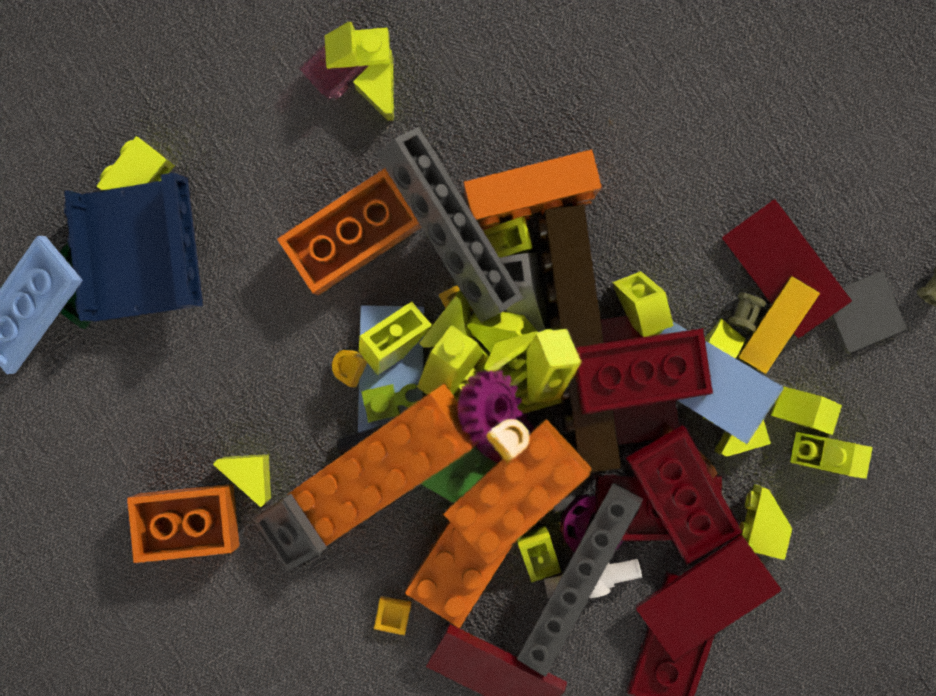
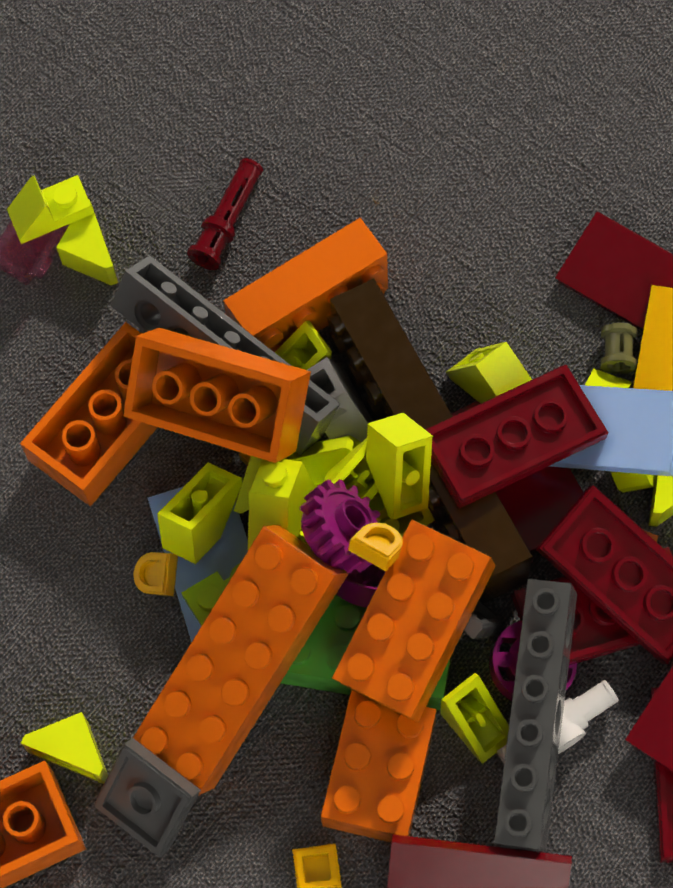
camera: 15 degrees left, 20 degrees down
(431, 266) = (216, 394): none -> orange brick
(483, 105) = (220, 227): none -> dark red pin

